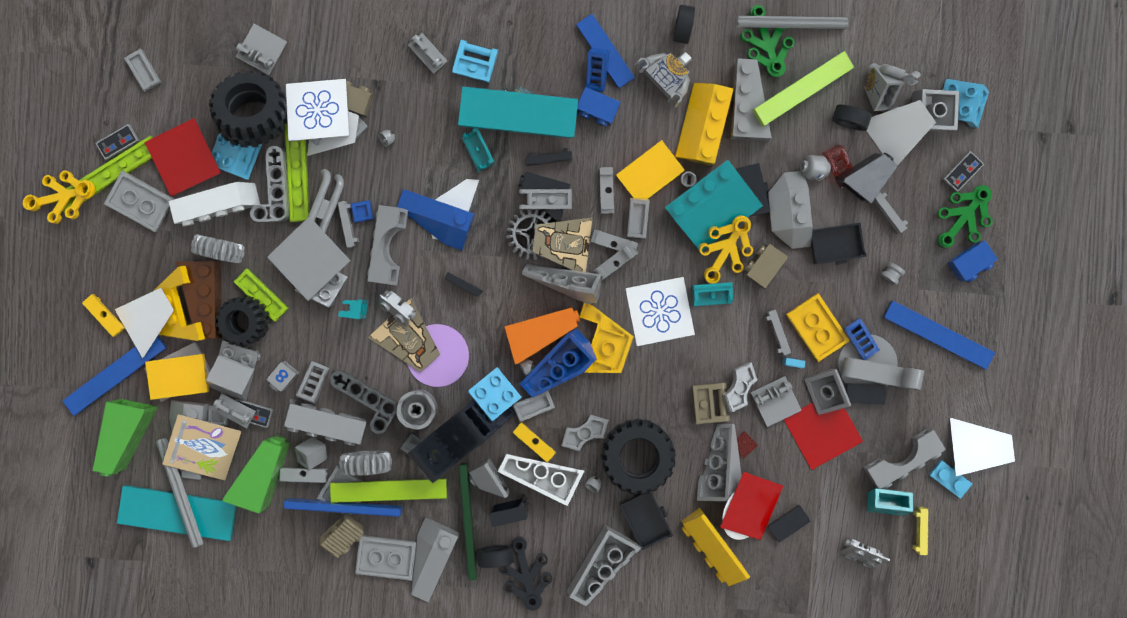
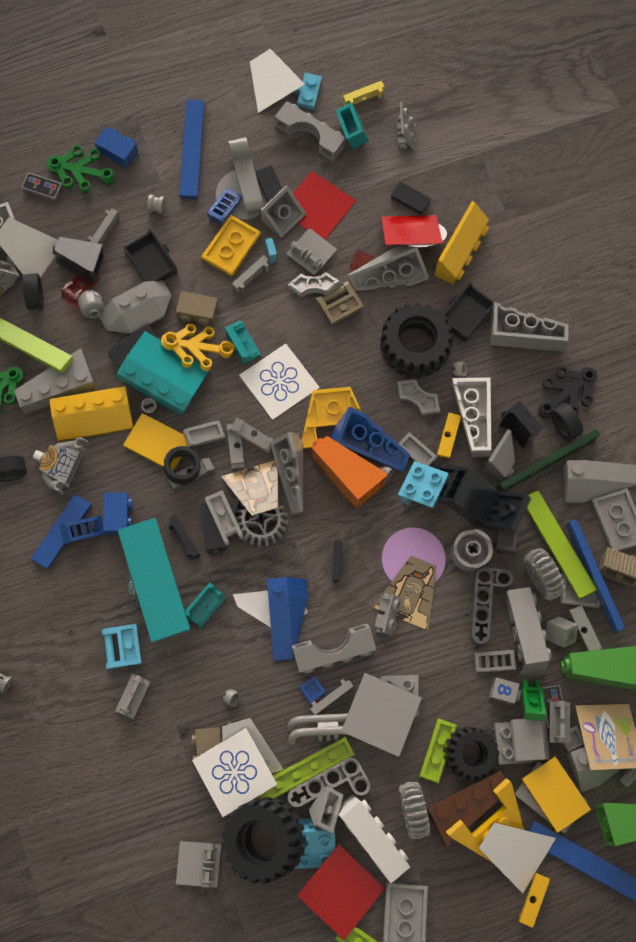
camera: 110 degrees left, 15 degrees down
(251, 173) = (326, 809): none -> light grey slope
(259, 395) = (533, 701): none -> green hinge
(357, 308) = (408, 647): teal hinge -> none
(629, 184) = (182, 451): none -> black tyre

